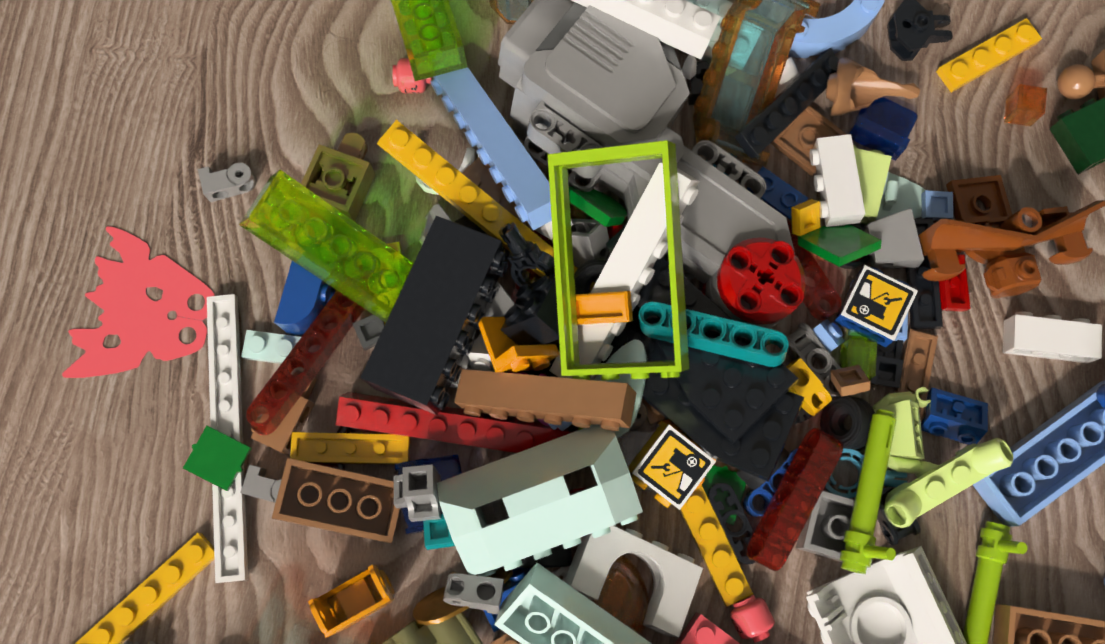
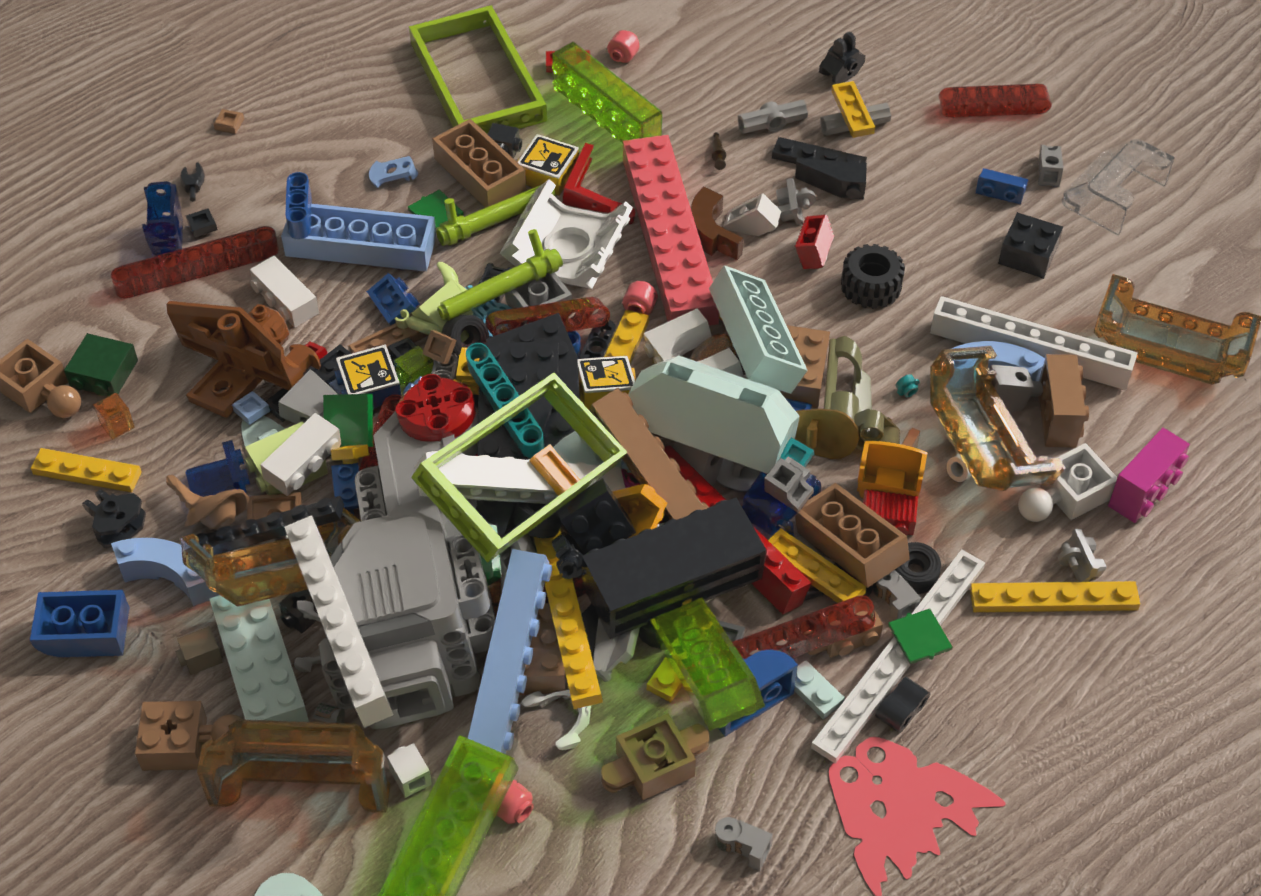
camera: 140 degrees left, 25 degrees down
(190, 388) = (902, 704): none -> black axle
(259, 540) = (930, 562): none -> black tyre
(335, 565) = (894, 508): none -> red brick
(474, 592) = (811, 412): light grey leg -> none
(493, 30) = (409, 770): none -> white brick
(946, 480) = (420, 255): yellowish green plate -> none
(1044, 561) = (433, 206): none -> green piece

